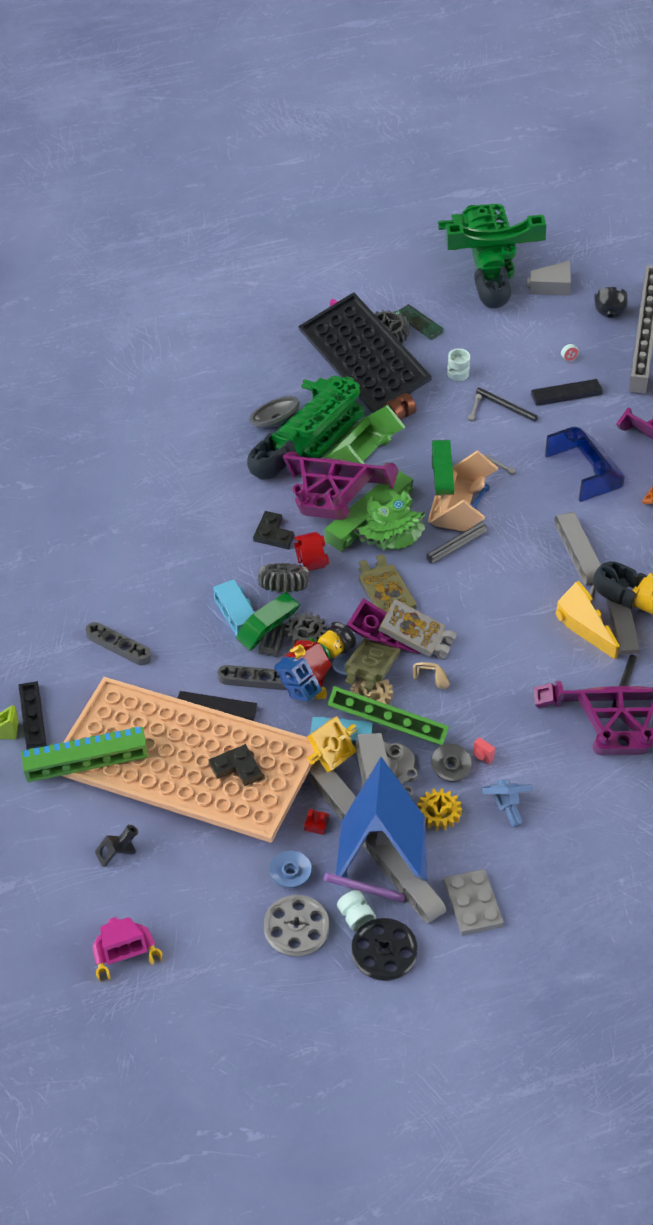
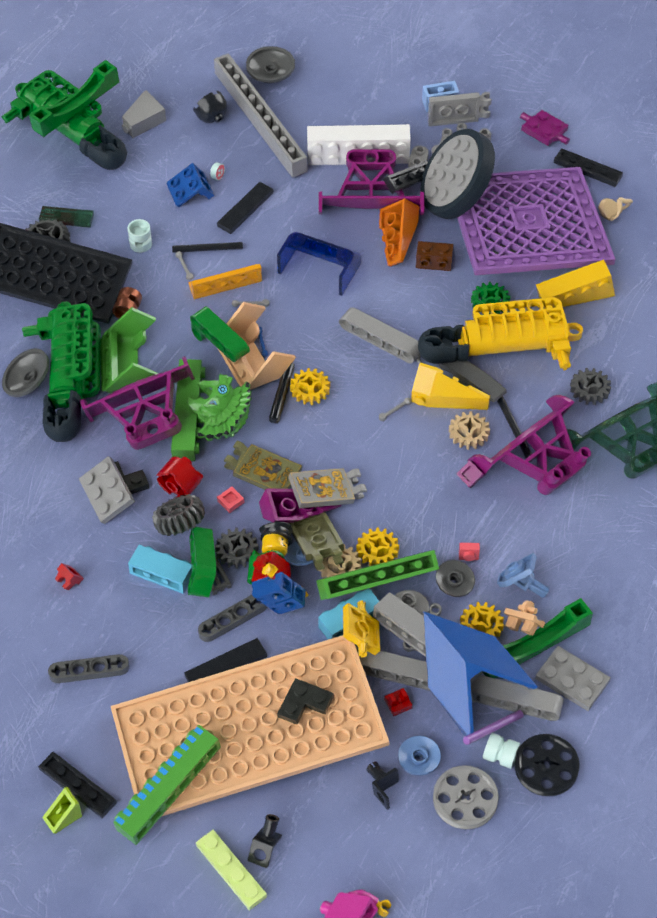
camera: 40 degrees left, 5 degrees up
(76, 849) = (231, 870): none -> yellowish green plate
(167, 570) = (69, 574): none -> red tile
(245, 867) = (382, 782): none -> black bracket
(251, 528) = (106, 490): none -> light grey plate
(337, 593) = (230, 499): none -> coral plate
(414, 698) = (379, 545): none -> yellow gear
(440, 677) = (381, 514): tan piece -> none
(472, 828) = (525, 616): none -> light nougat hips
(483, 551) = (310, 386): none -> yellow gear
(494, 436) = (225, 281): none -> light orange fence
(506, 856) = (565, 624): none -> green arch
(519, 610) = (382, 416): none -> light grey hinge
(539, 347) = (188, 184): none -> blue bracket
(578, 662) = (478, 430): none -> tan gear

